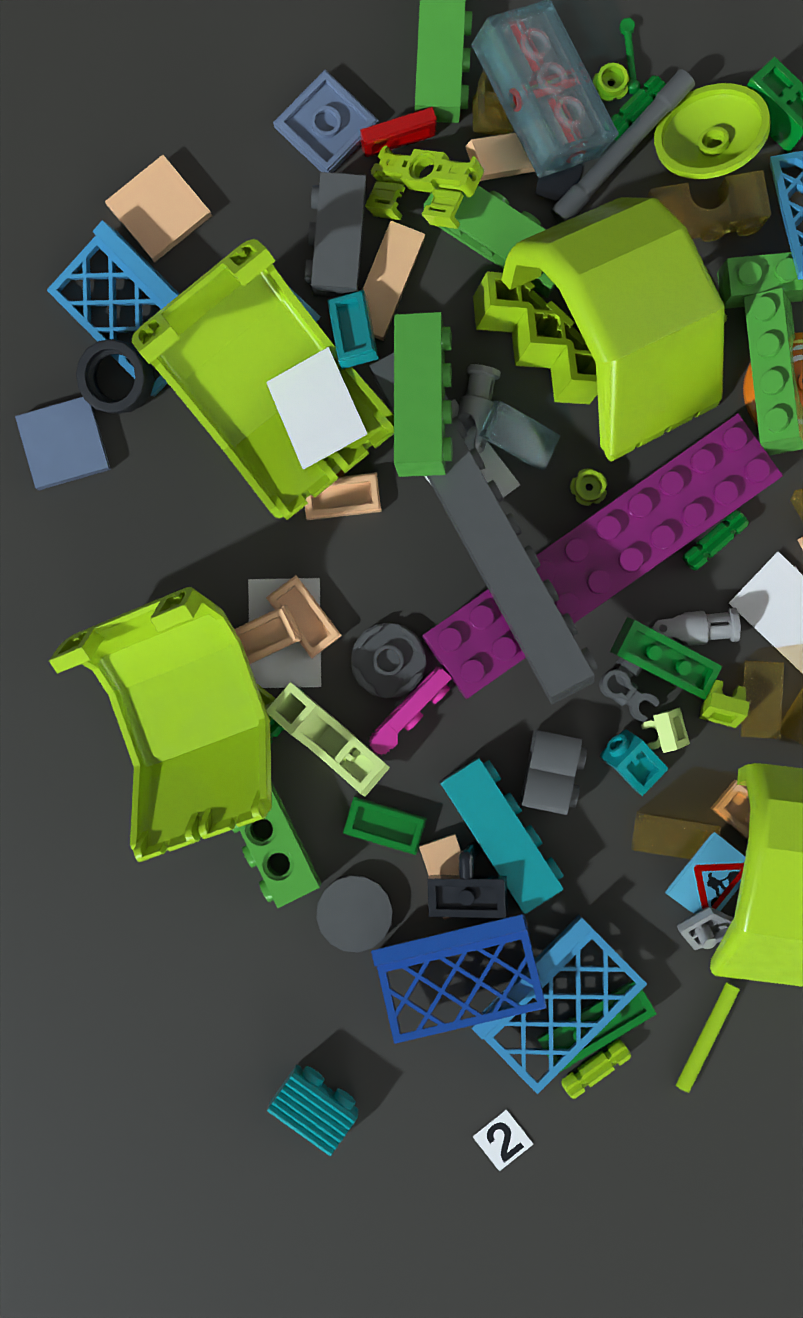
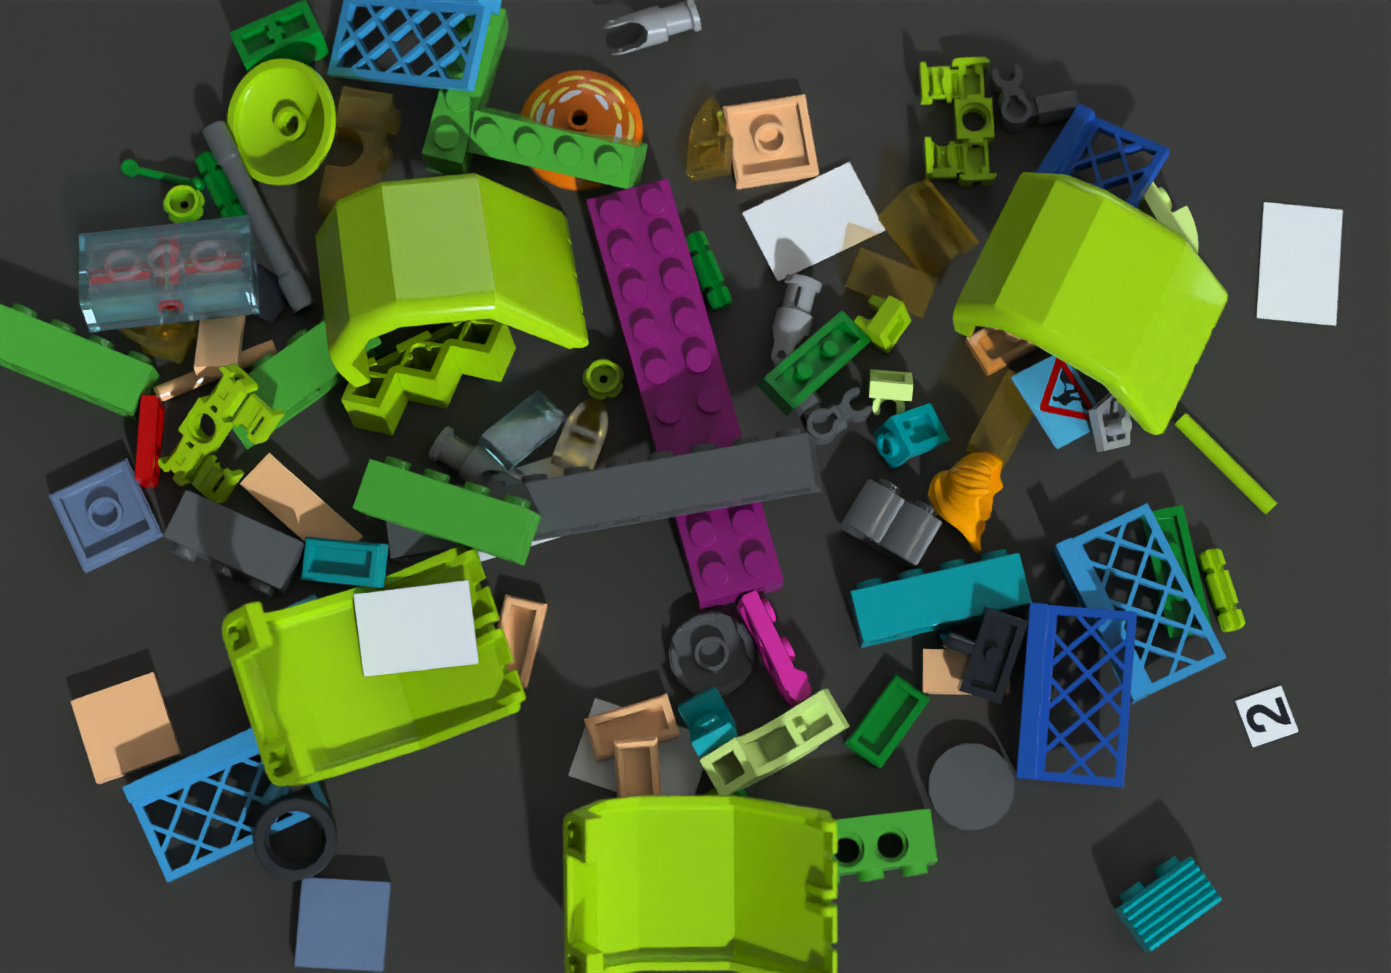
camera: 70 degrees left, 10 degrees down
(328, 679) = (708, 721): none -> teal bracket
(458, 143) = (191, 381): none -> light nougat bar
(532, 487) = (582, 436): none -> clear yellow plate
(600, 826) = (966, 494): none -> light orange hair

